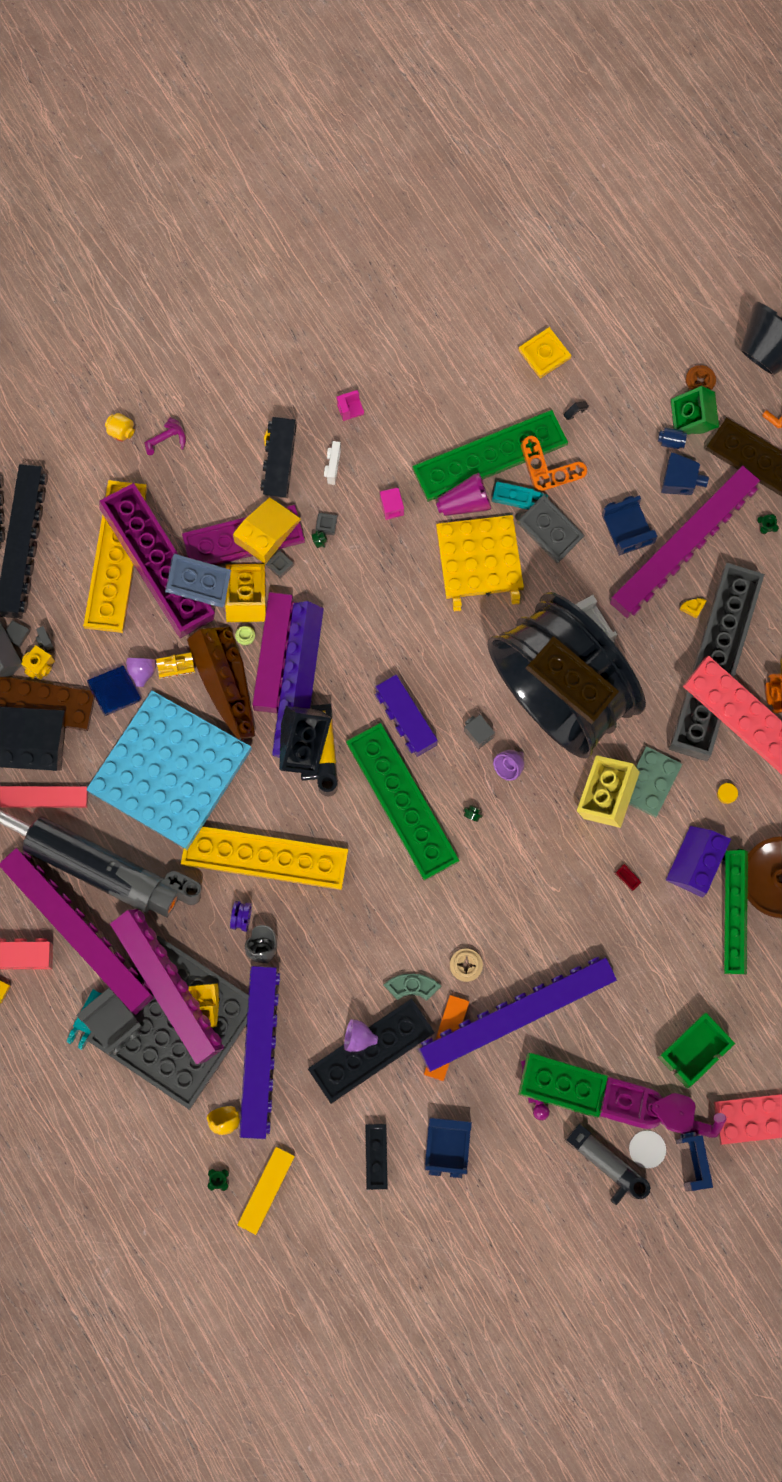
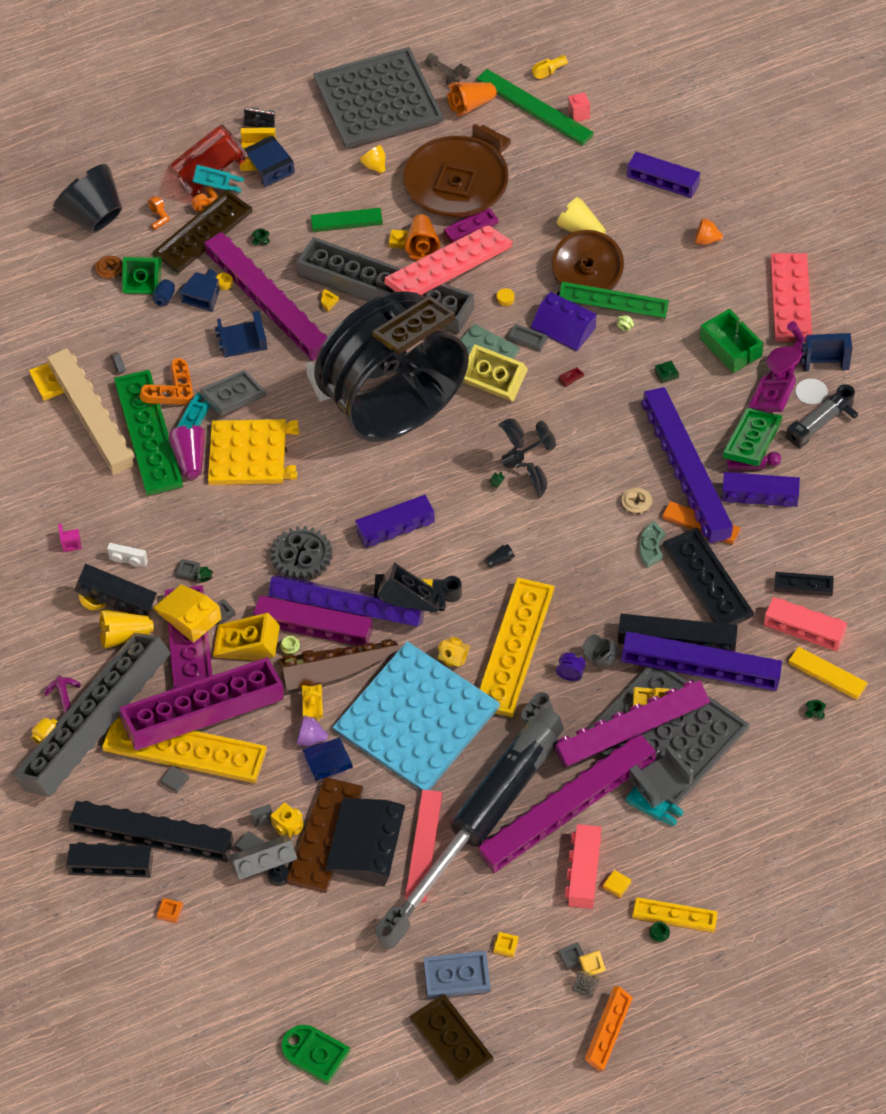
camera: 80 degrees left, 20 degrees down
(83, 553) = (175, 779): none -> dark grey tile
(138, 463) = (91, 714): none -> dark grey brick
(198, 580) = (234, 662): sand blue plate -> none
(223, 1120) = (762, 696): yellow hair -> none
(243, 473) = (120, 626): none -> yellow cone
(247, 795) = (453, 651): none -> yellow brick
(294, 1024) = (694, 632): none -> black brick
(322, 1162) = (805, 624): none -> coral brick
(350, 645) = (315, 552): none -> dark grey gear
(358, 1036) = (695, 580): medium lavender helmet -> none
(375, 829) = (500, 556): none -> black cone
(391, 503) = (180, 512): dark pink panel -> none
(402, 802) = (476, 533): green plate -> none
(447, 1147) = (799, 531): dark blue panel -> none
(478, 731) = (419, 467): dark grey brick -> none
(495, 1100) = (760, 489): none -> dark purple brick
(503, 394) = (90, 411): none -> tan brick
(504, 821) = (514, 457): none -> black plant
(509, 764) = (456, 445): medium lavender helmet -> none
(649, 981) = (666, 371): none -> dark green plate
(674, 824) = (527, 338): none -> dark grey tile
(701, 496) = (225, 281): none -> yellow tile
(708, 928) = (625, 323): none -> yellowish green plate

